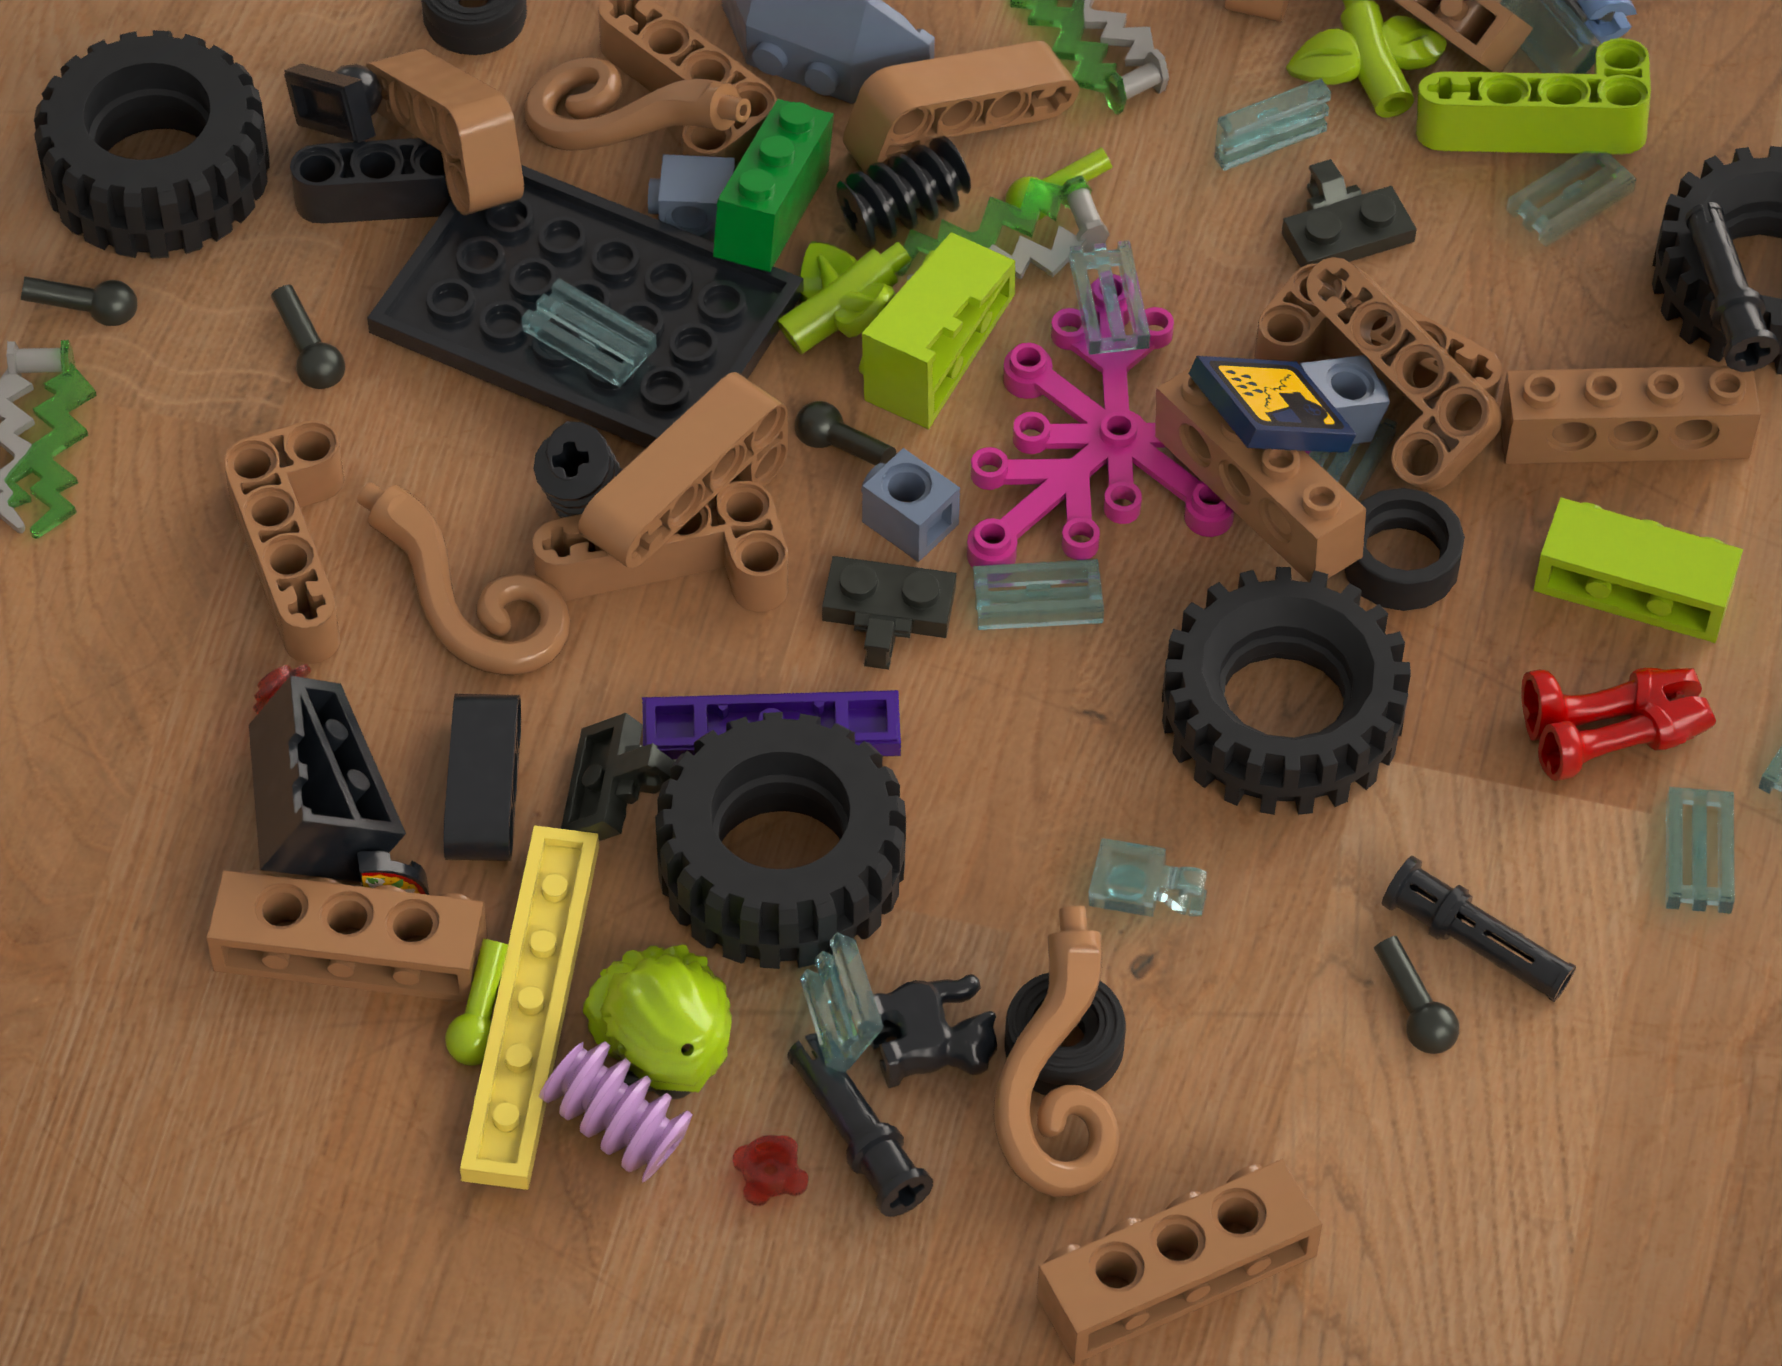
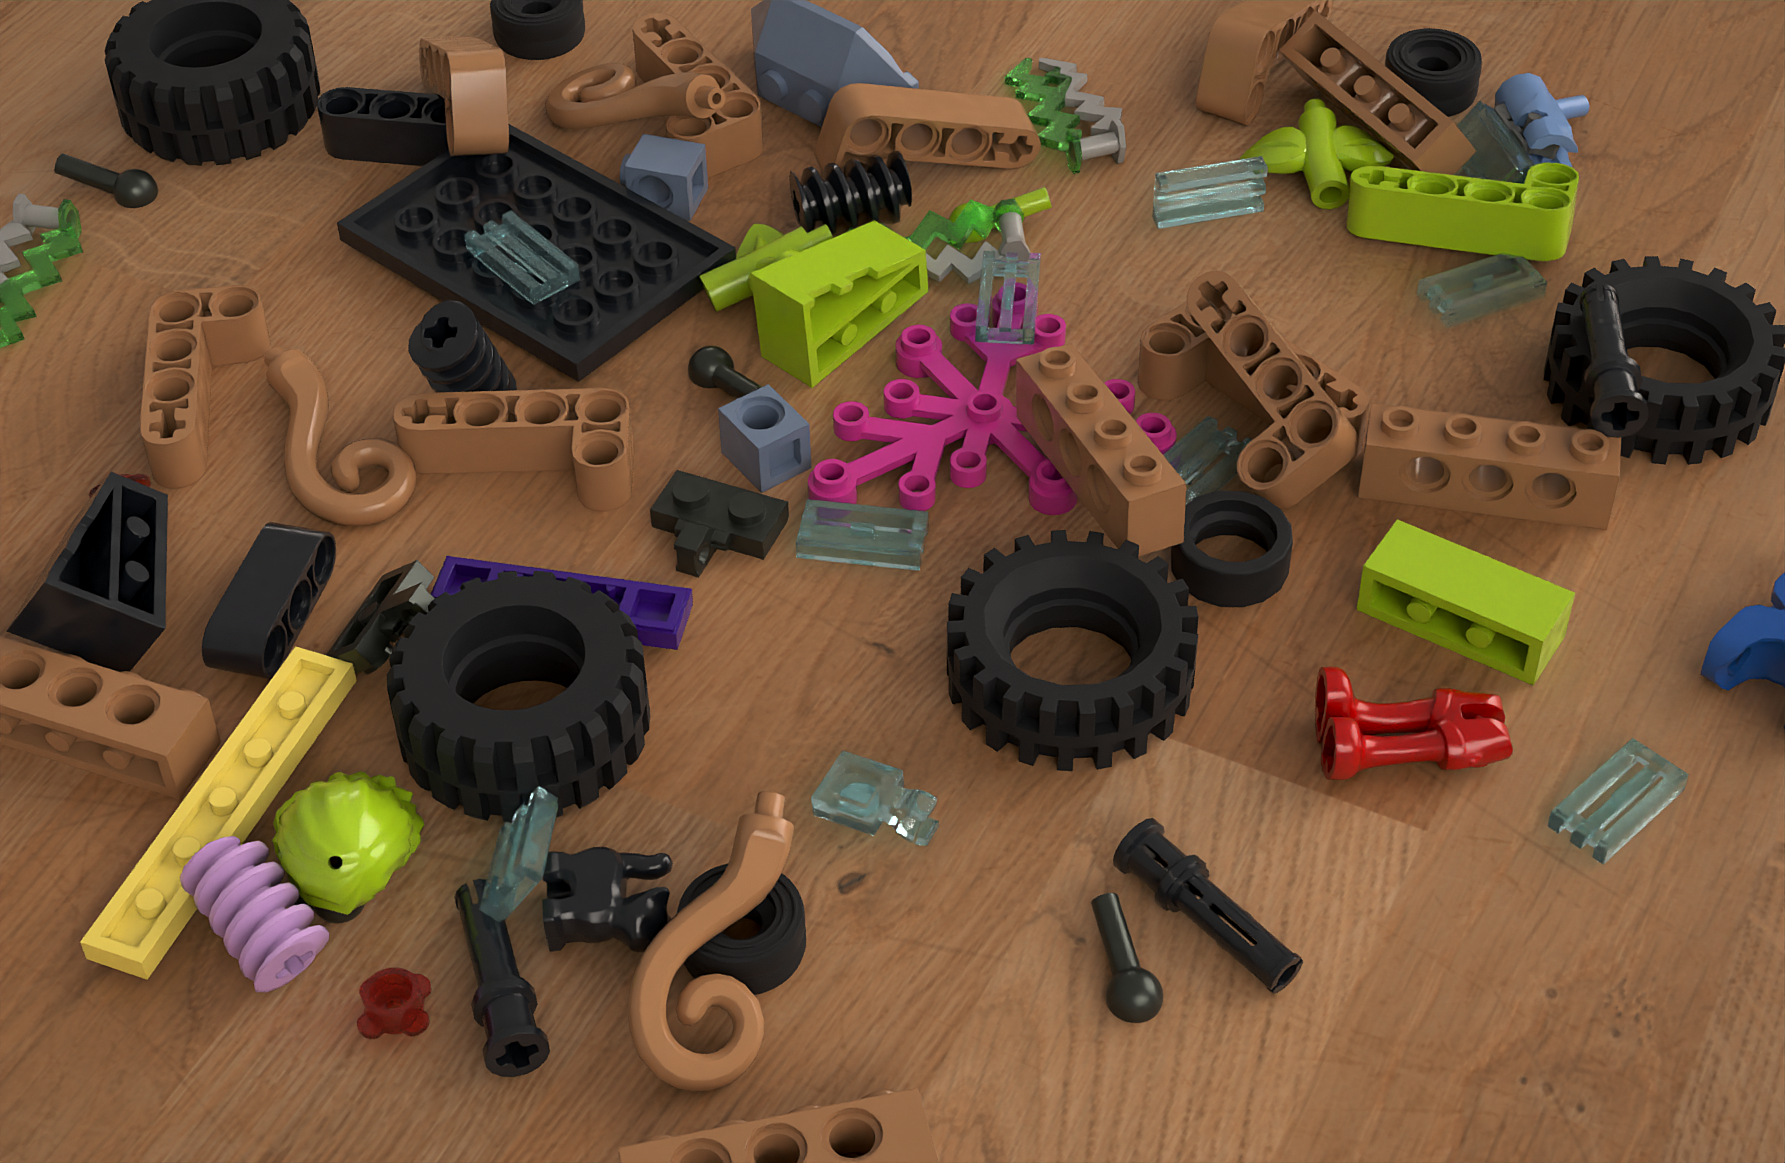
camera: 15 degrees right, 10 degrees down
(319, 363) = (287, 256): pearl dark grey bar -> none
(335, 101) = (384, 59): black tile -> none
(379, 870) = (128, 655): black tile -> none
(469, 1032) = (153, 817): lime bar -> none
(722, 436) = (556, 361): medium nougat beam -> none
(773, 185) = (731, 169): green brick -> none
(1272, 404) = (1120, 383): tile -> none
(1345, 221) = (1267, 279): pearl dark grey hinge -> none
(1353, 391) = (1197, 407): sand blue brick -> none
(1699, 894) = (1458, 913): clear light blue tile -> none

